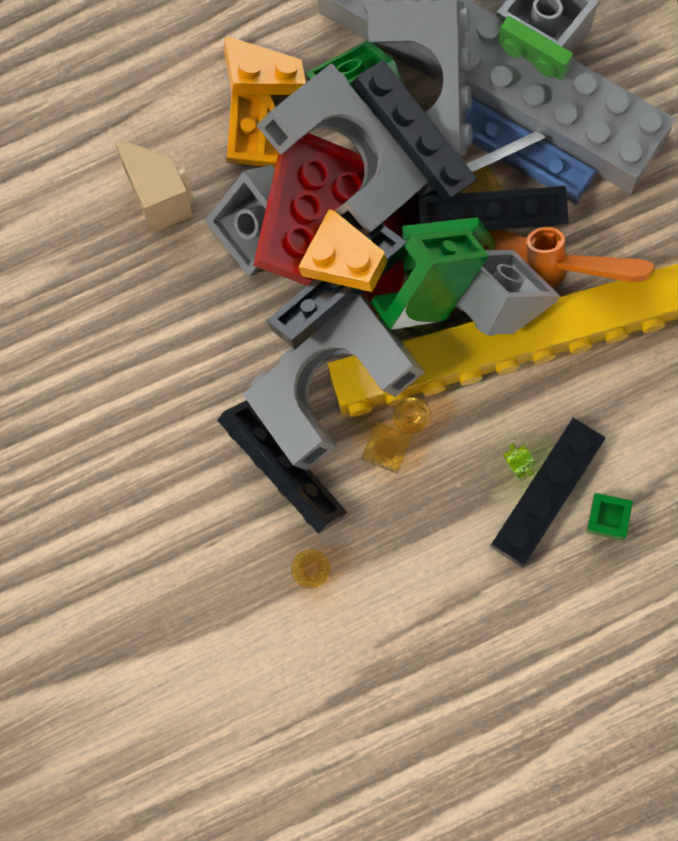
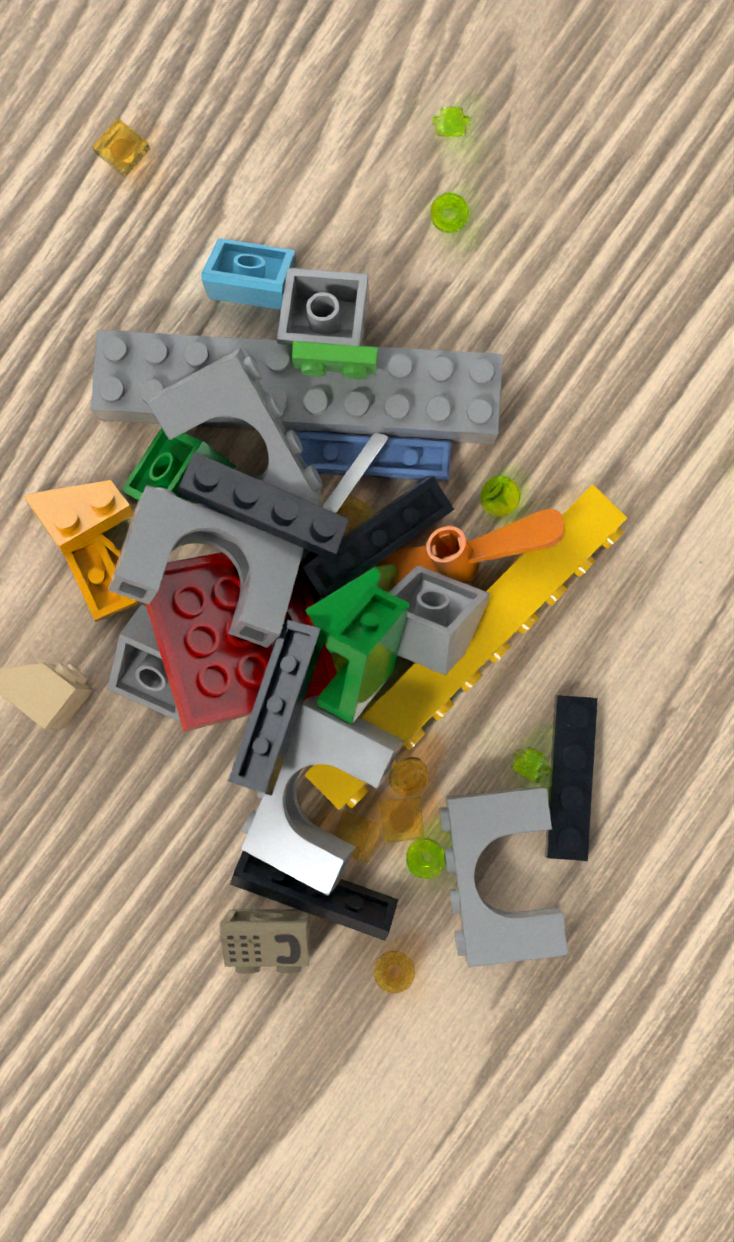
camera: 30 degrees left, 10 degrees up
(222, 478) = (265, 939): none -> dark tan slope
(343, 255) = (266, 675): light orange wing -> none
(348, 443) = (358, 832): none -> clear yellow plate
(380, 486) = (418, 865): none -> clear neon green plate
(444, 482) = (486, 932): none -> light grey arch
(609, 516) = (640, 772): green plate -> none
(613, 236) = (499, 496): none -> clear neon green tile

